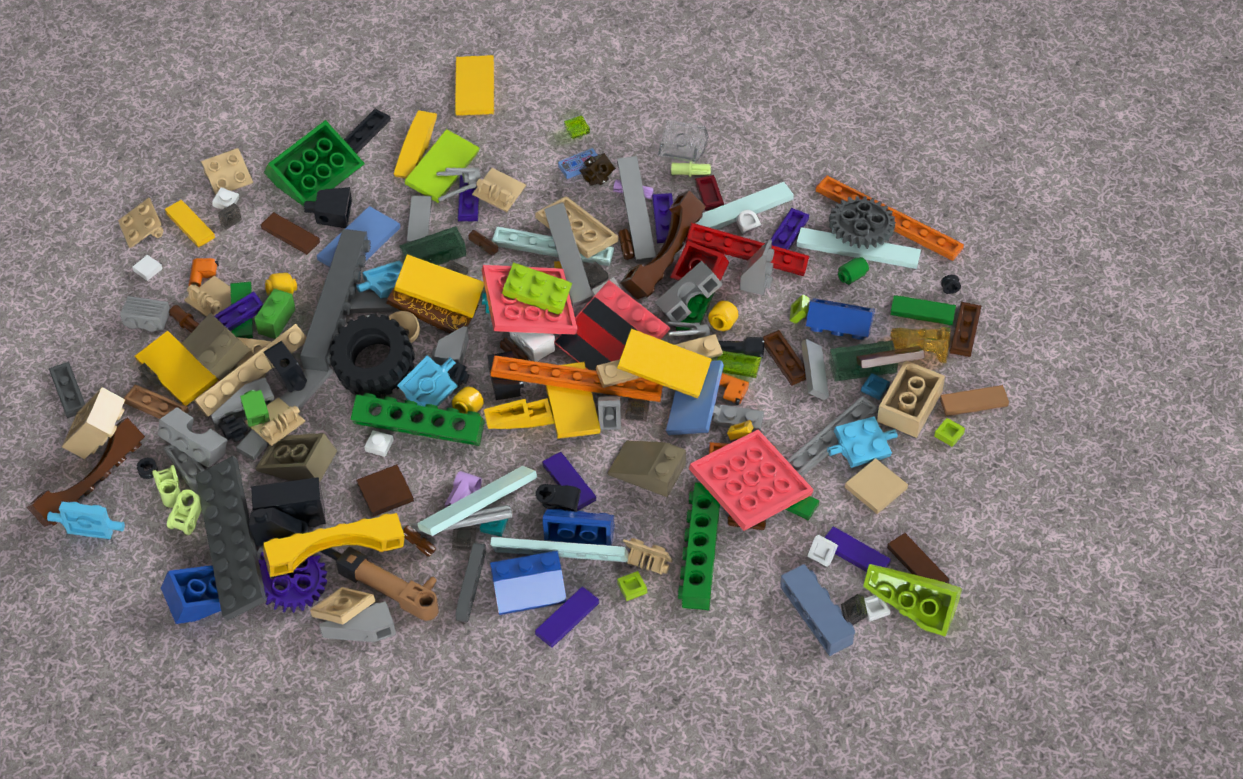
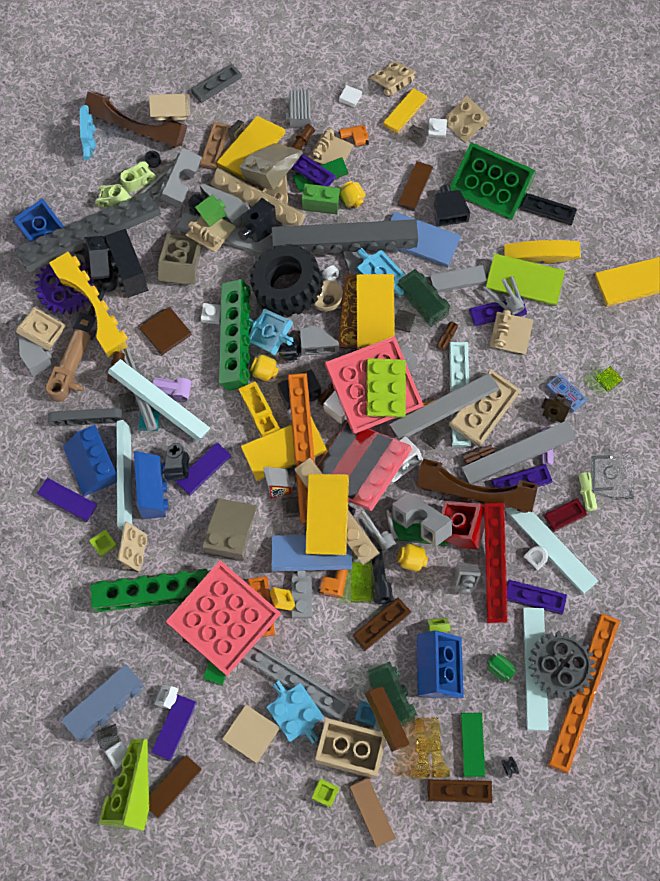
camera: 75 degrees right, 15 degrees up
(815, 369) = (370, 653): light grey tile -> none

